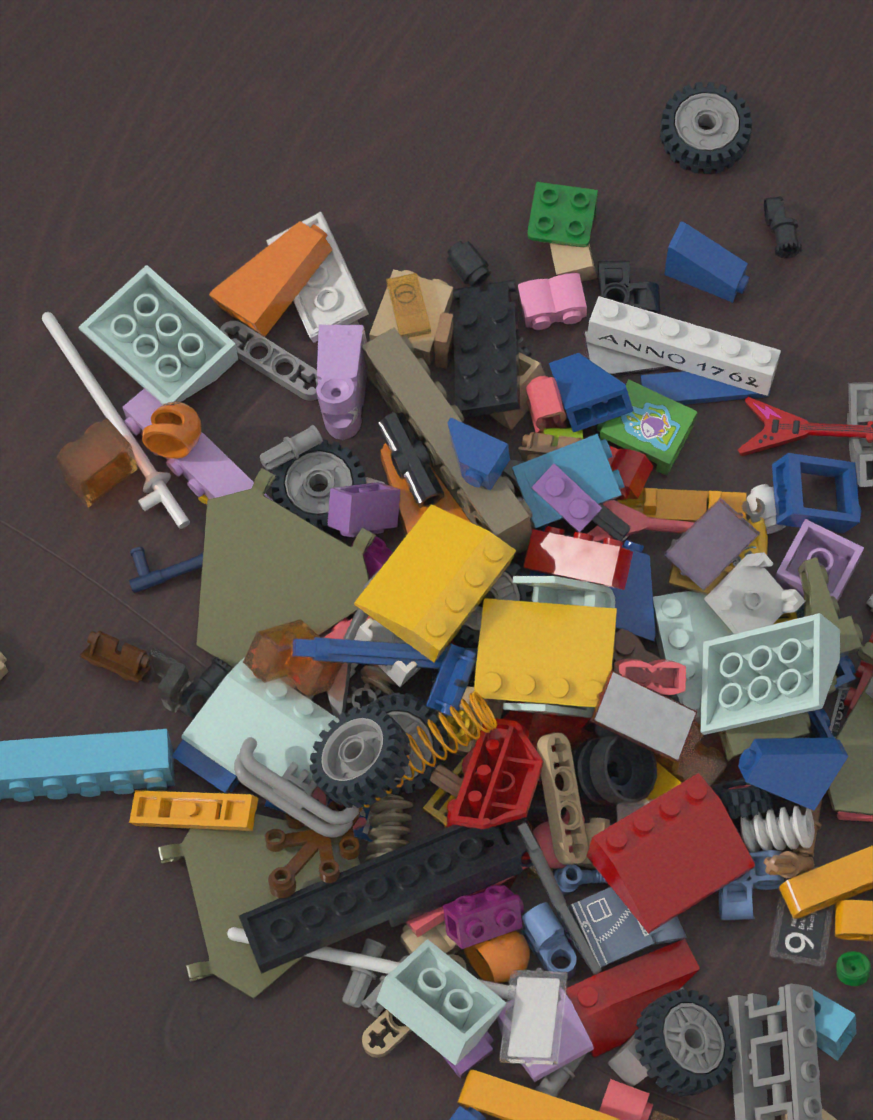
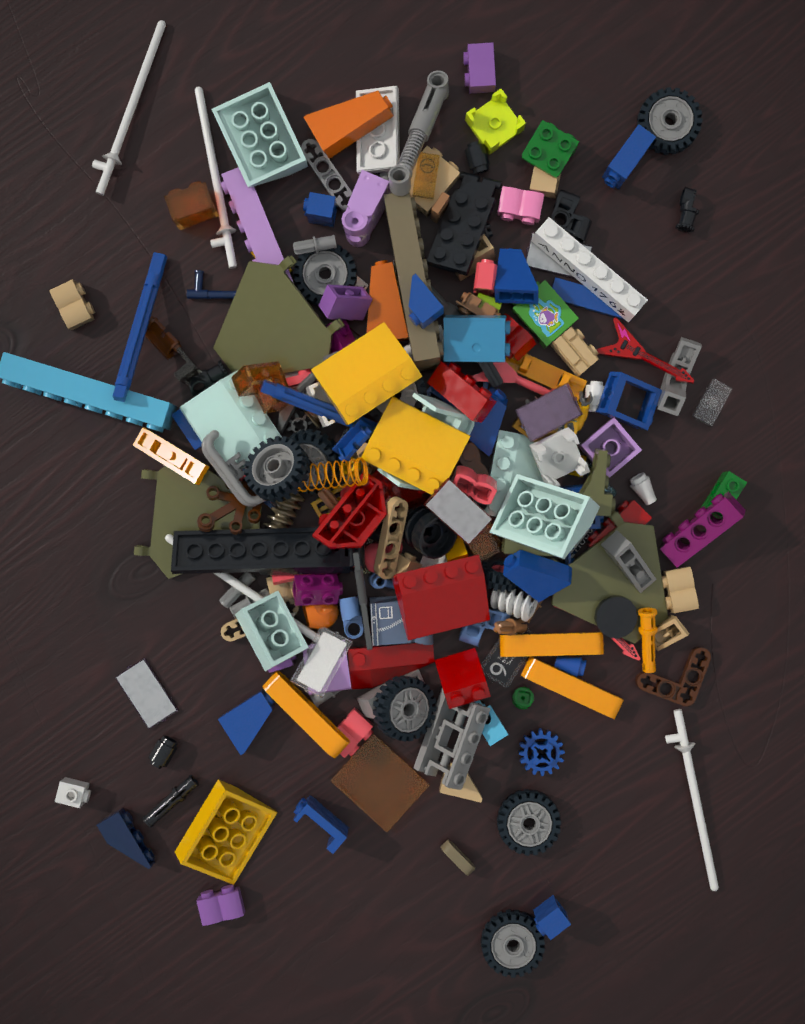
camera: 20 degrees right, 20 degrees up
(82, 647) = (139, 326): none -> blue piece
(173, 430) = (245, 206): orange helmet -> none
(279, 402) = (320, 209): none -> blue brick
(377, 255) = (419, 131): none -> light grey piece
(410, 459) = (386, 282): black piece -> none
(424, 152) = (480, 68): none -> medium lavender brick
(472, 211) = (495, 122): none -> neon yellow panel
(566, 498) = (469, 351): medium lavender plate -> none
(671, 187) = (628, 157): none -> blue window
(705, 264) = (627, 219): blue slope -> none
(711, 459) = (575, 351): none -> tan brick
(751, 964) = (462, 678): none -> red brick

